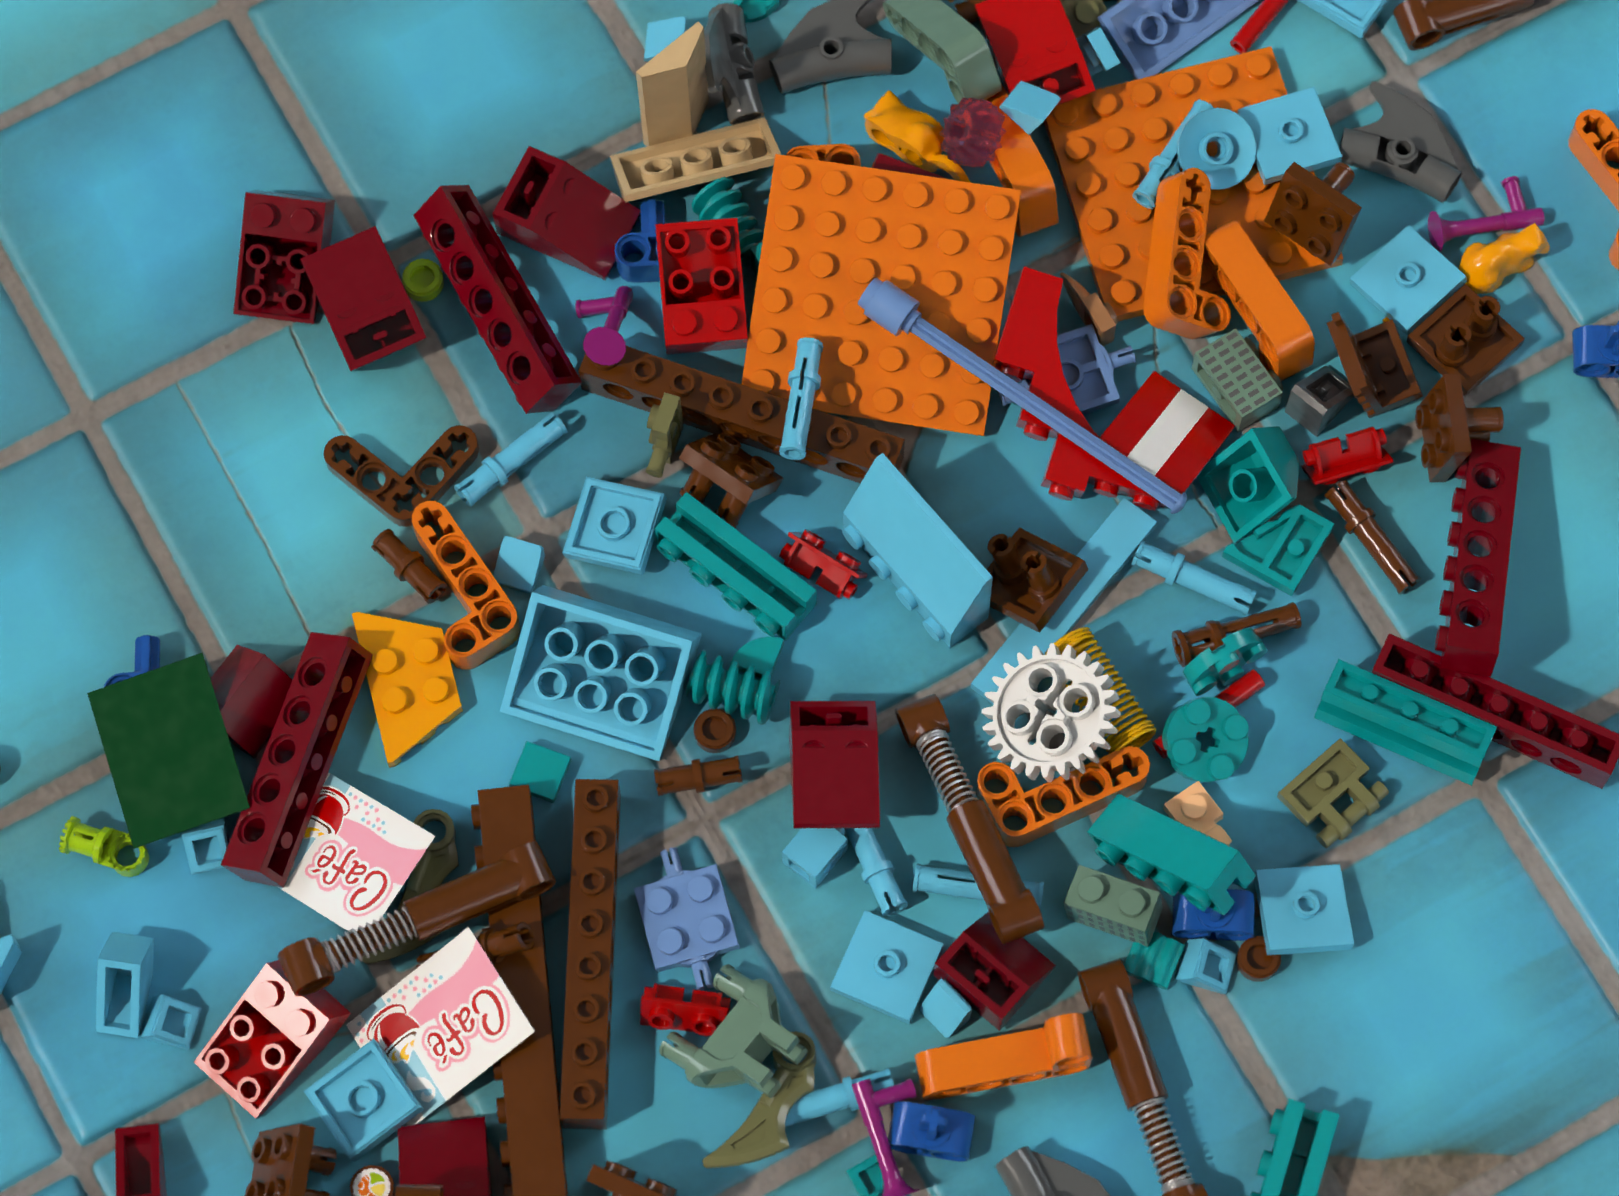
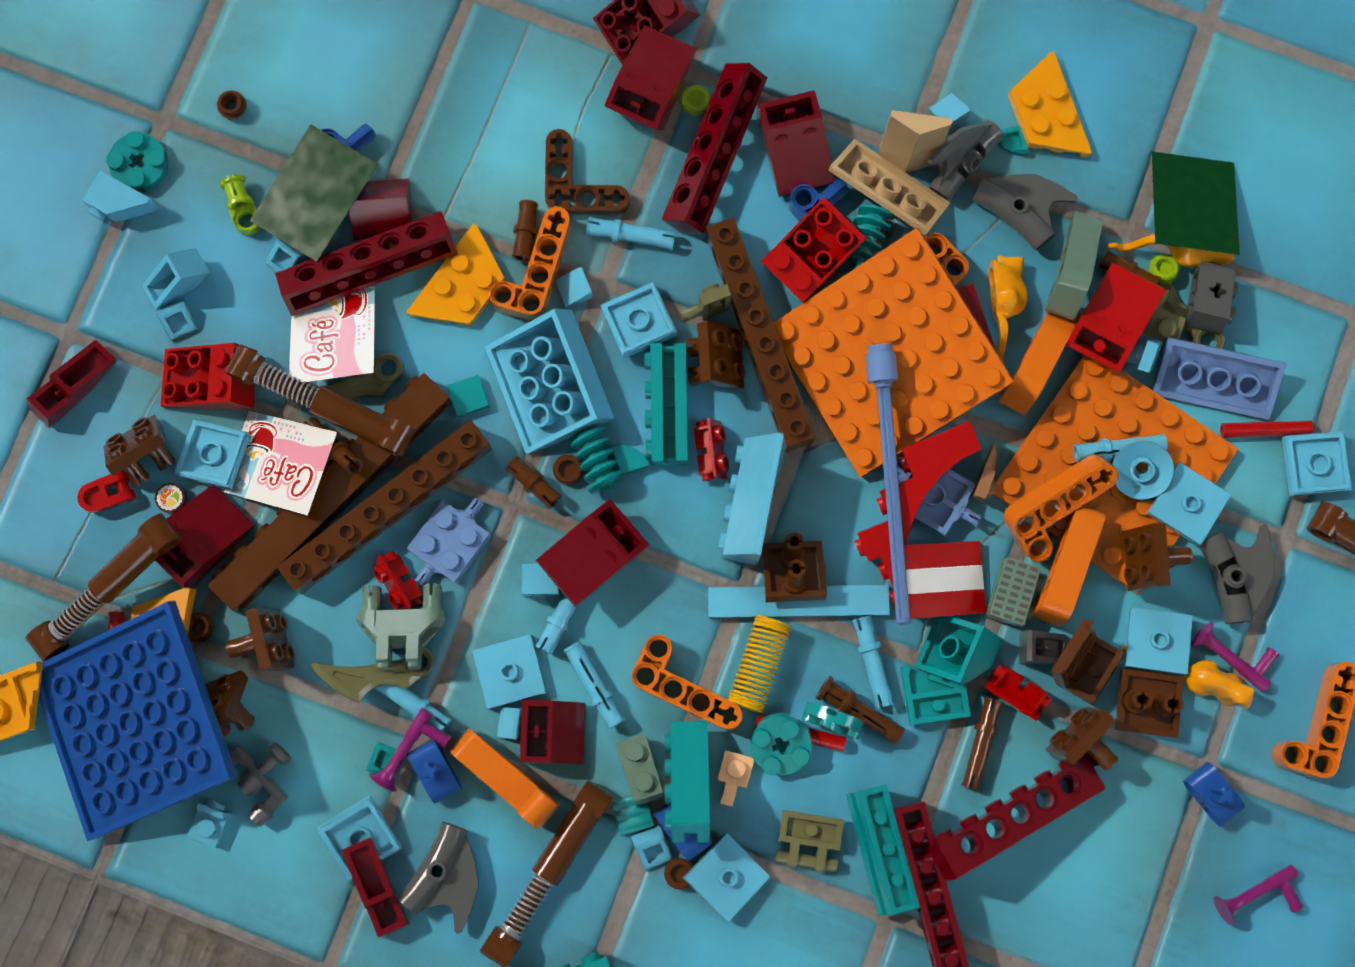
camera: 50 degrees right, 10 degrees up
(604, 343) = (729, 228): magenta piece -> none
(803, 382) = (799, 354): medium azure pin -> none
(972, 132) = (1031, 325): clear pink gear -> none
(1007, 899) = (622, 654): reddish brown piece -> none
(1029, 105) = (1075, 343): medium azure slope -> none
(1082, 730) = (720, 674): white gear -> none

